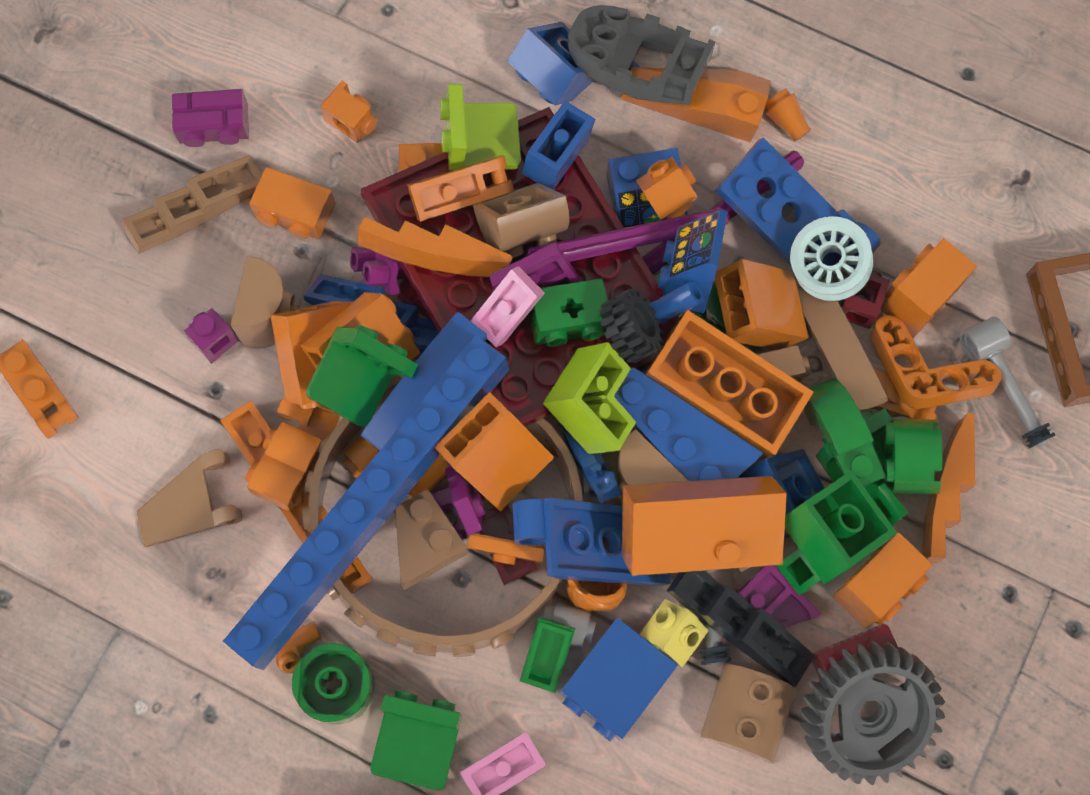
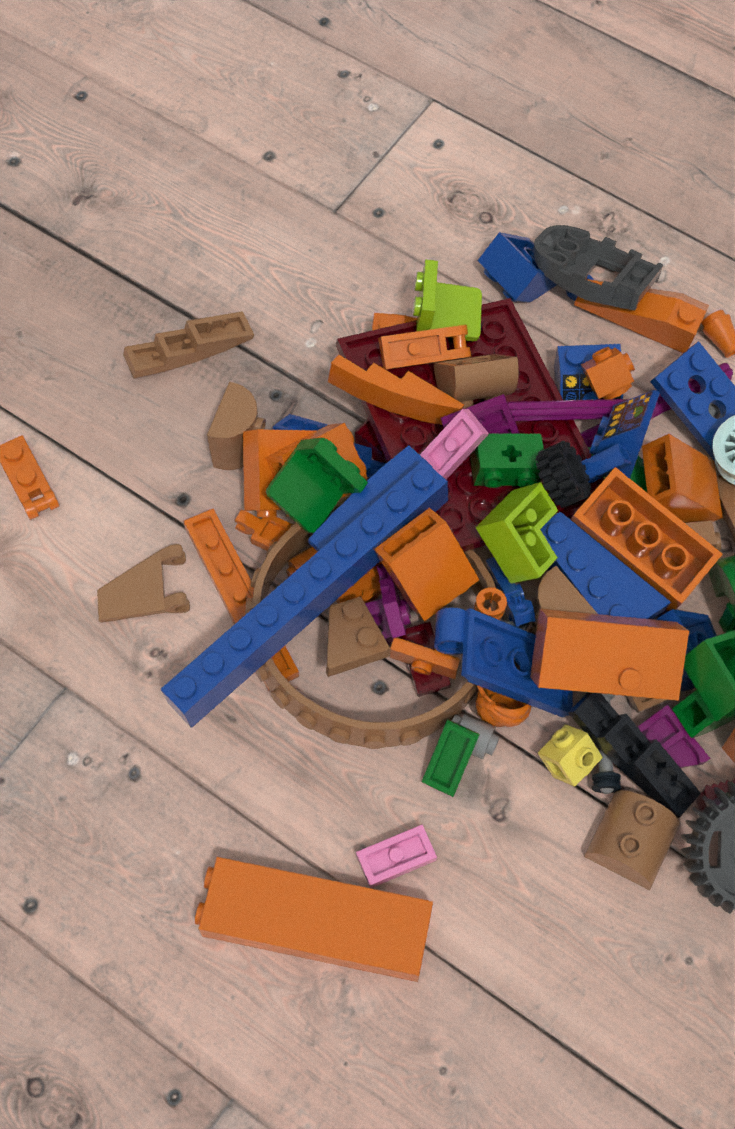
camera: 10 degrees right, 10 degrees down
(206, 330) = (181, 445): magenta brick -> none
(210, 117) = (213, 276): magenta brick -> none
(284, 466) = (233, 565): orange brick -> none
(292, 204) = (273, 353): orange brick -> none
(292, 651) = (218, 723): orange arm -> none
(320, 667) = (237, 743): green brick -> none
(348, 113) = (333, 287): orange brick -> none
(377, 269) = (342, 408): magenta hips -> none
(416, 741) = (320, 817): green bracket -> none
(558, 145) = (515, 323): blue brick -> none
(558, 480) = (493, 595): none -> orange bush
(617, 681) = (512, 791): blue brick -> none

